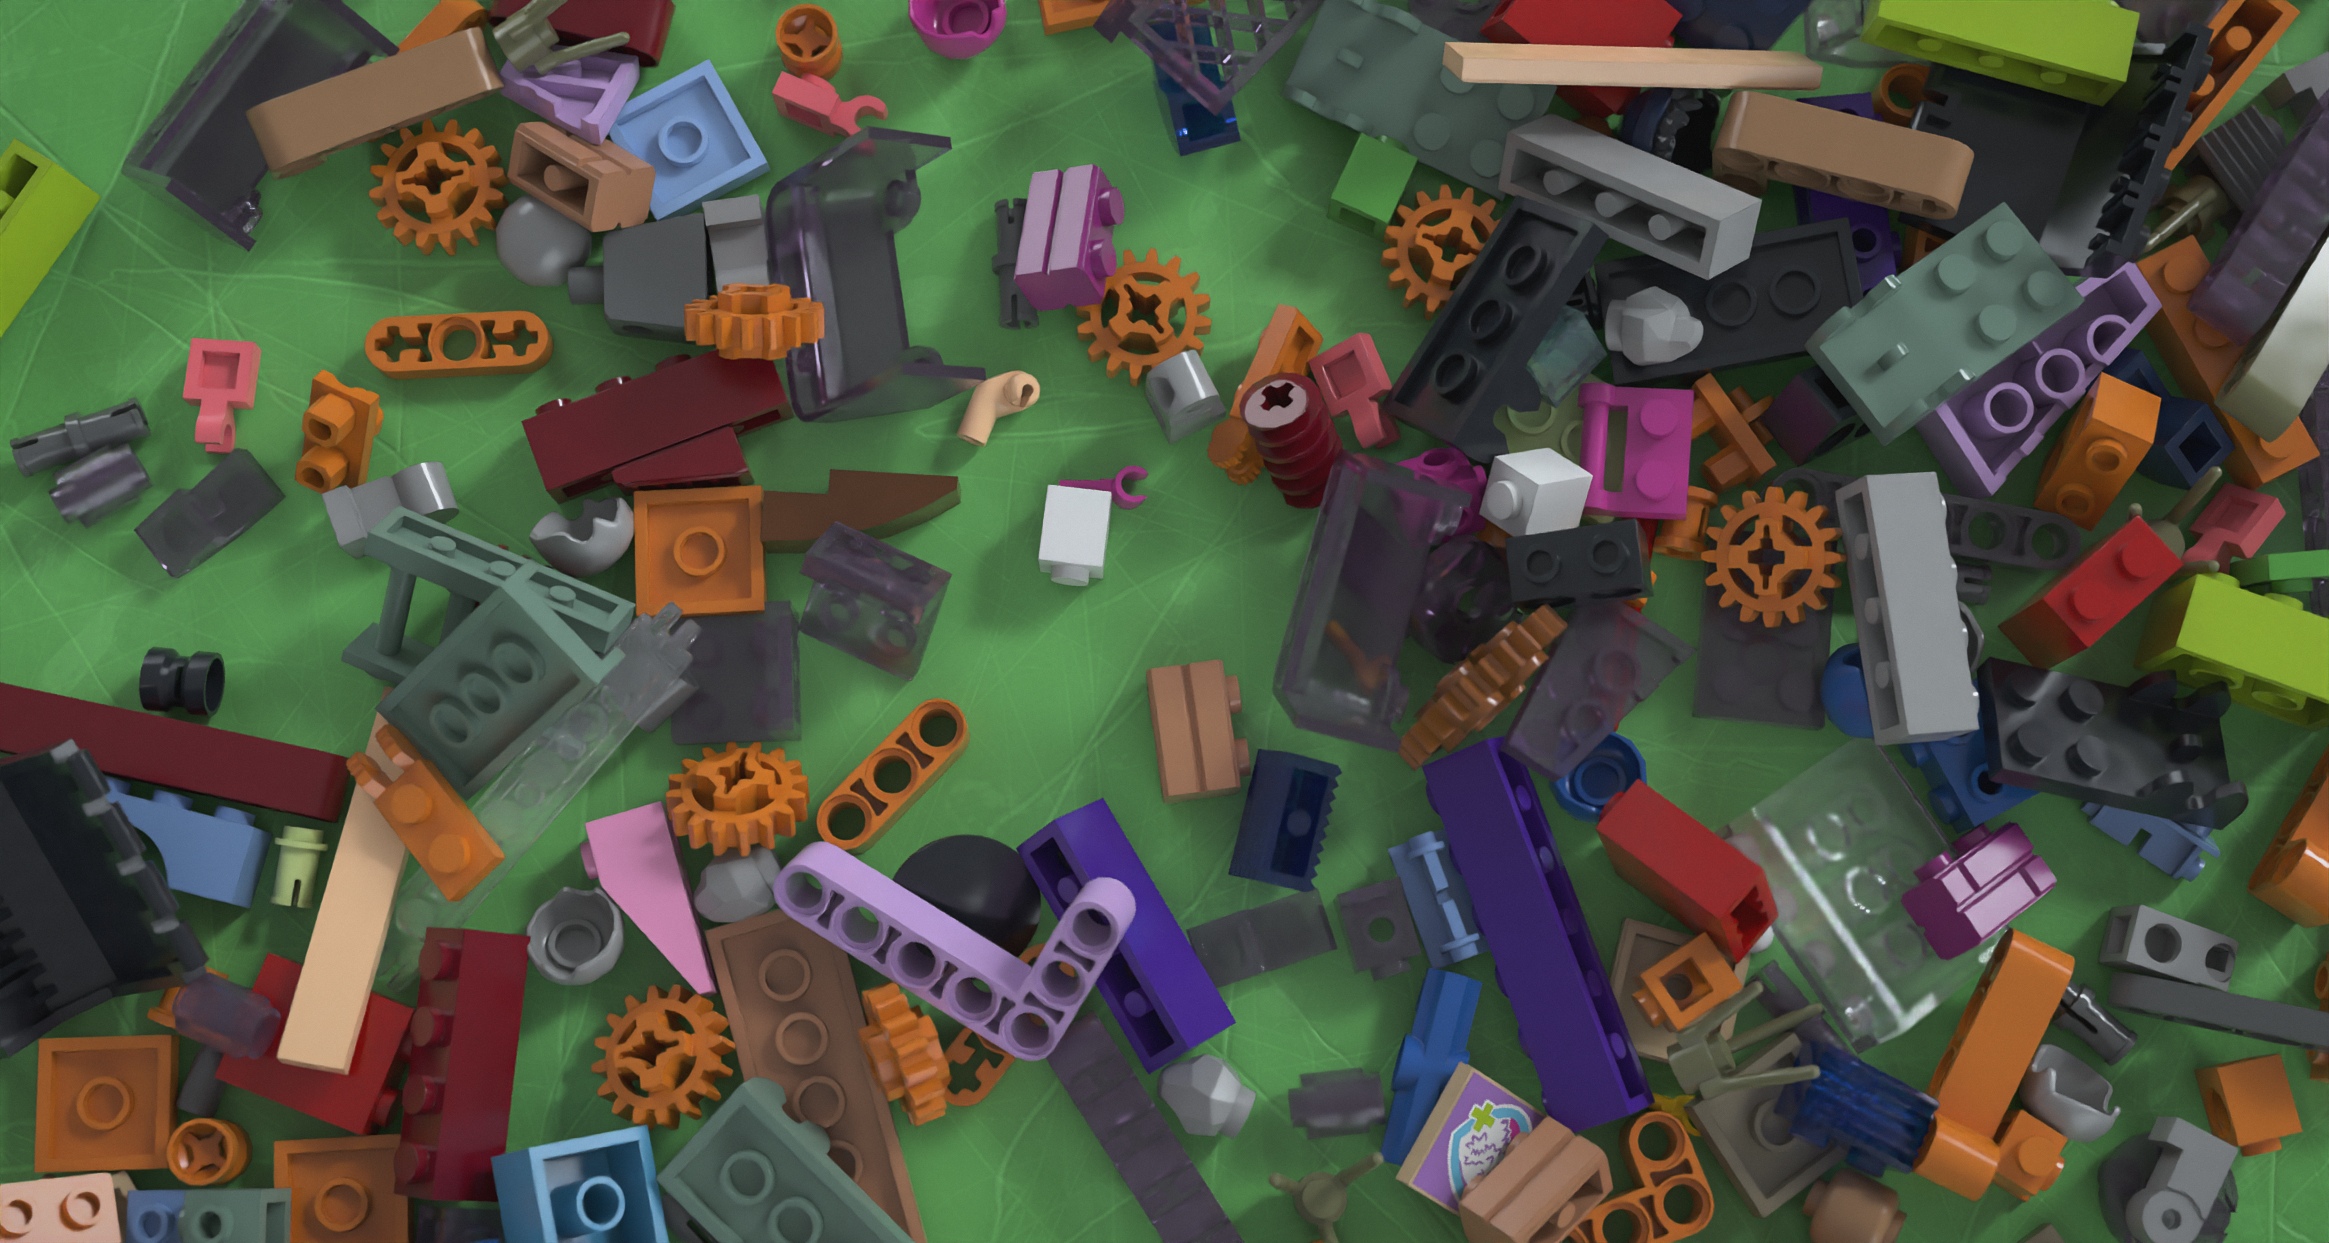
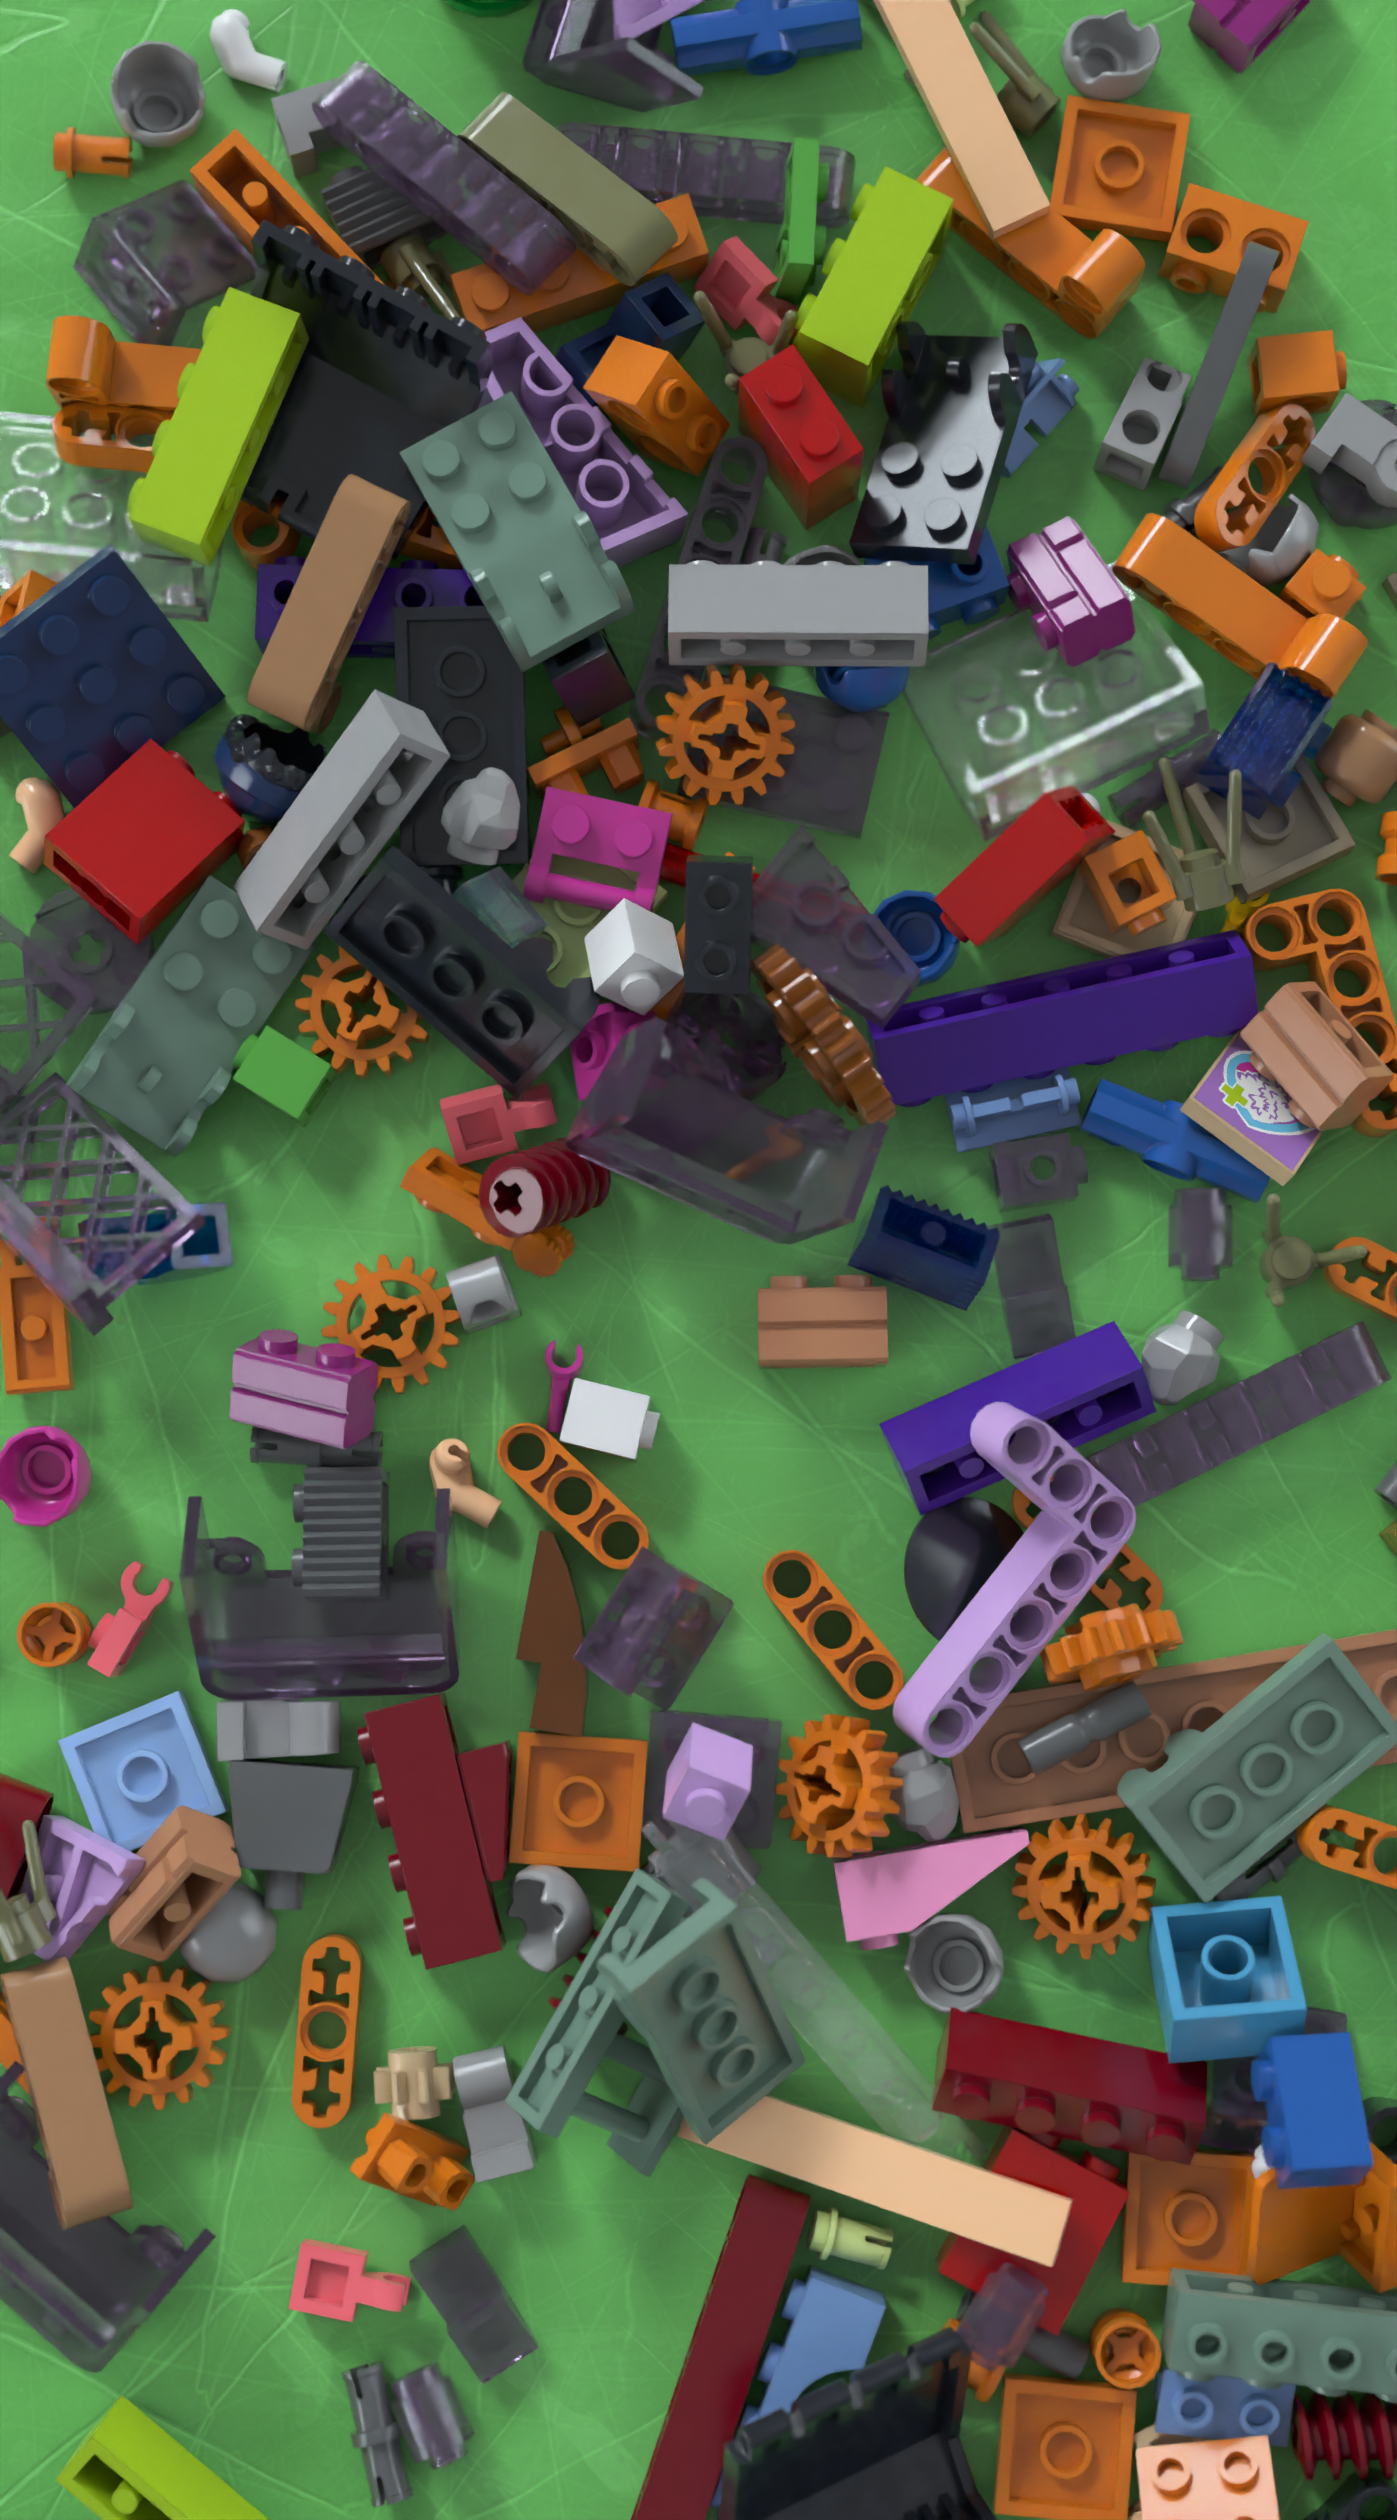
camera: 75 degrees left, 5 degrees up
(182, 681) = (648, 2343): black wheel -> none
(413, 427) = (414, 2082): none -> tan gear
(428, 816) = (822, 2098): orange hinge -> none
(725, 660) = (708, 1781): none -> lavender brick
(754, 321) = (360, 1717): orange gear -> none
(824, 1042) = (1091, 1724): none -> dark grey piece
(934, 295) = (343, 1534): none -> dark grey brick
(999, 480) = (550, 1474): none -> orange beam
(1631, 66) = (206, 798): light nougat tile -> none
(2119, 1046) = (1232, 485): none -> orange beam

